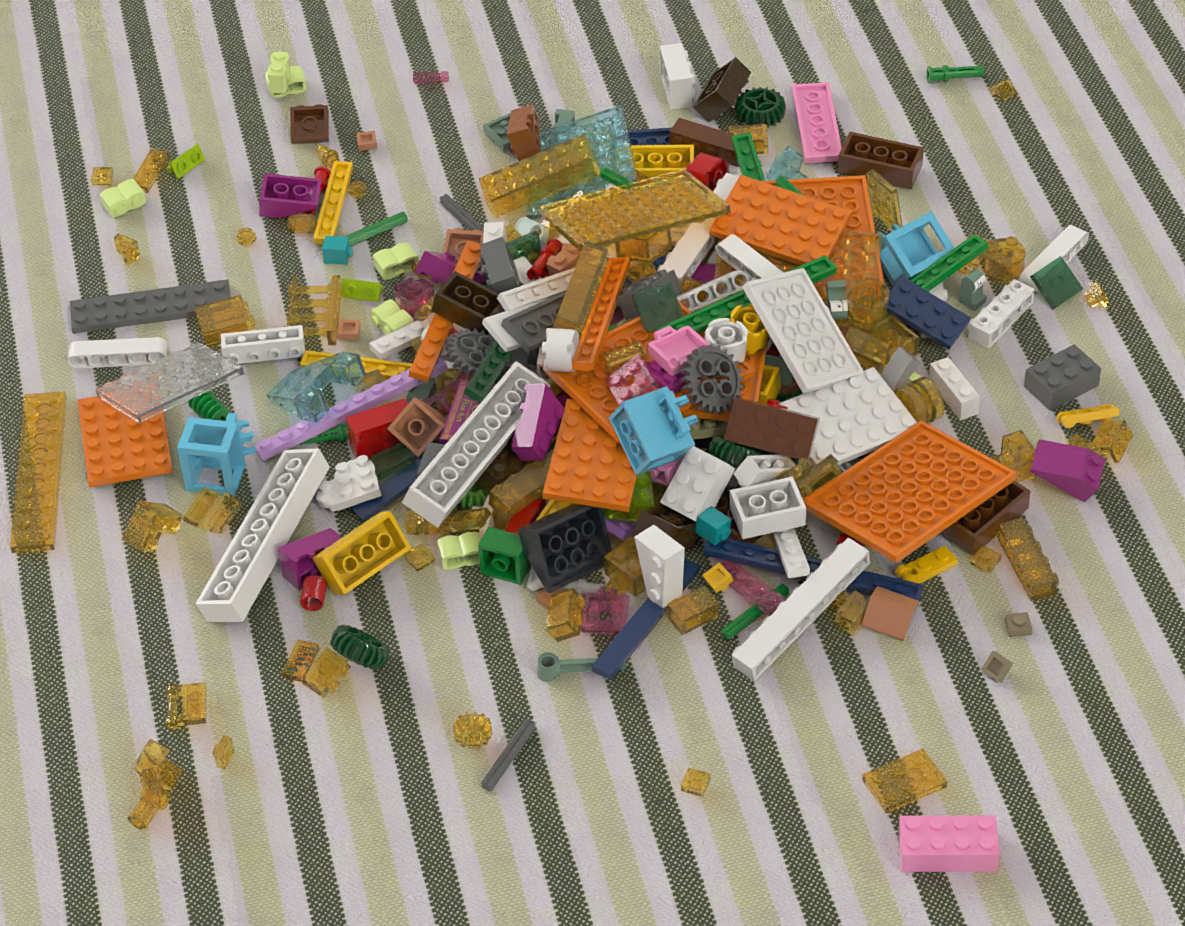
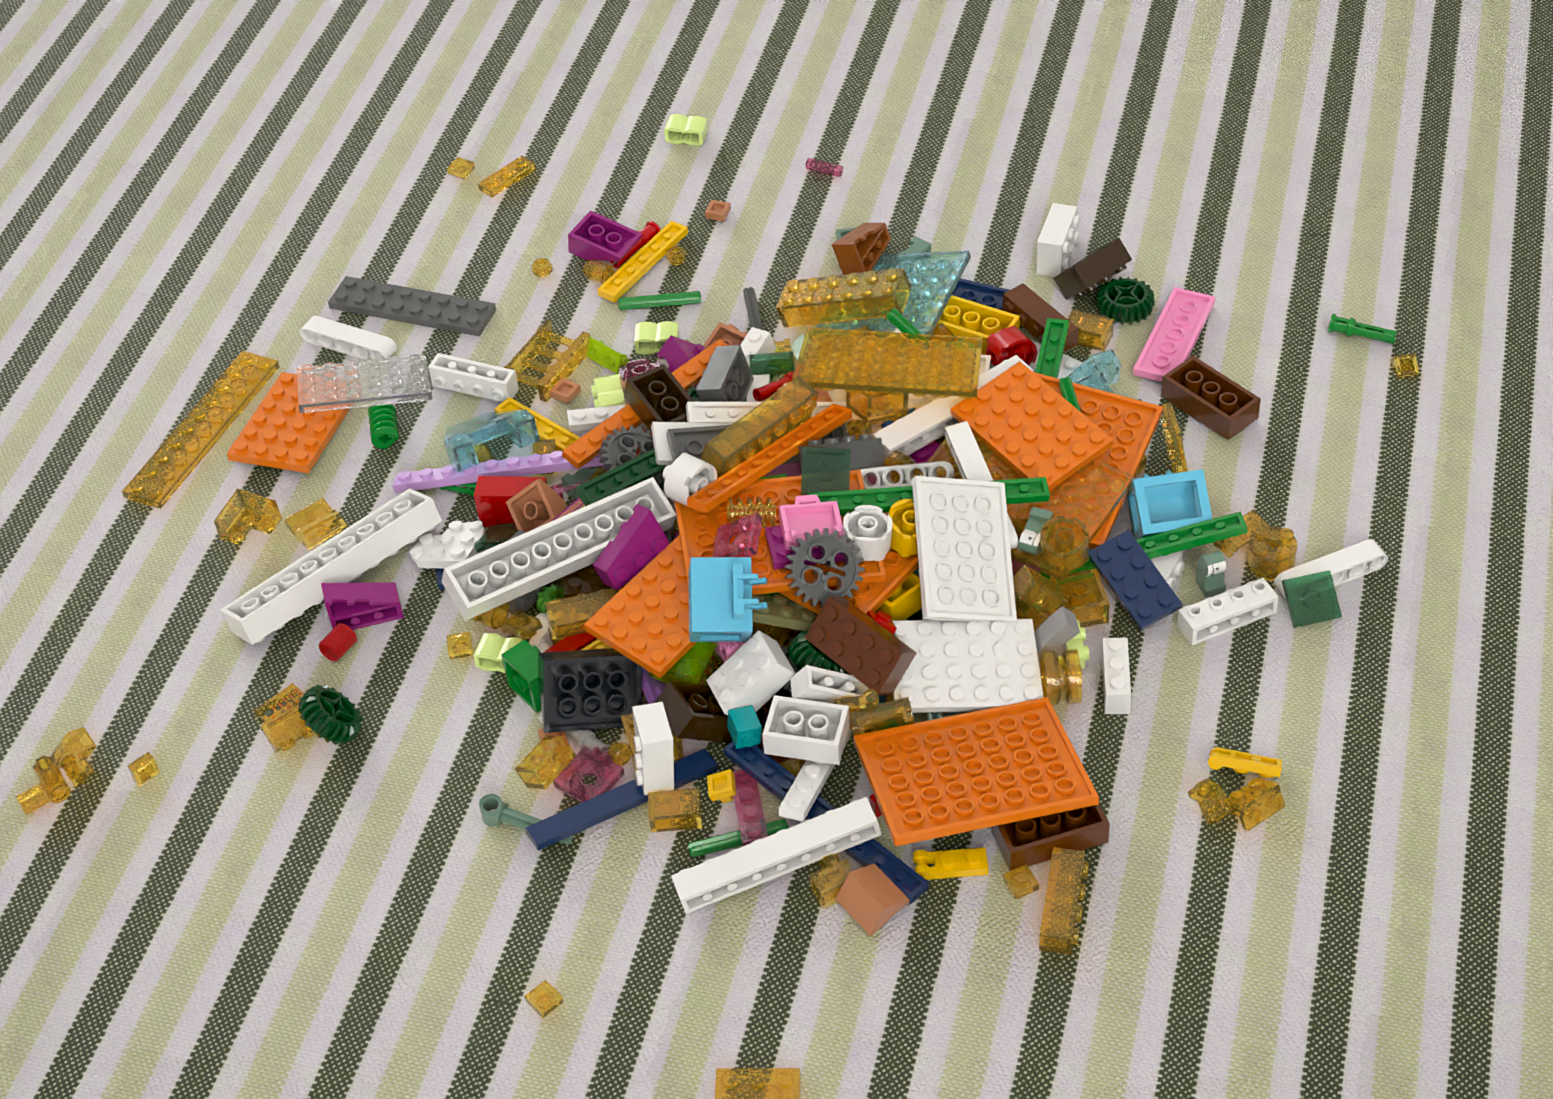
camera: 30 degrees right, 0 degrees up
(123, 198) = (461, 194): yellowish green brick -> none
(127, 247) = (429, 244): clear yellow bracket -> none
(186, 161) = (542, 178): lime hinge -> none
(193, 705) = (154, 711): clear yellow plate -> none
(214, 446) = (337, 456): medium azure piece -> none
(223, 317) = (461, 339): clear yellow brick -> none
(279, 72) = (675, 117): yellowish green brick -> none
(309, 124) = (676, 177): reddish brown plate -> none
(327, 155) = (671, 213): clear yellow cone -> none
(336, 250) = (610, 308): teal brick -> none
(362, 553) = (401, 619): yellow brick -> none
(472, 730) = (371, 845): clear yellow gear -> none
(508, 755) = (391, 886): dark grey axle -> none
(997, 666) = (943, 1010): dark tan plate -> none
(1017, 455) = (1127, 786): clear yellow brick -> none
(1018, 624) = (1004, 971): dark tan plate -> none
(1062, 377) = (1245, 708): dark grey brick -> none
(1068, 468) = (1173, 814): magenta slope -> none
(1096, 295) = (1351, 630): clear yellow tile -> none

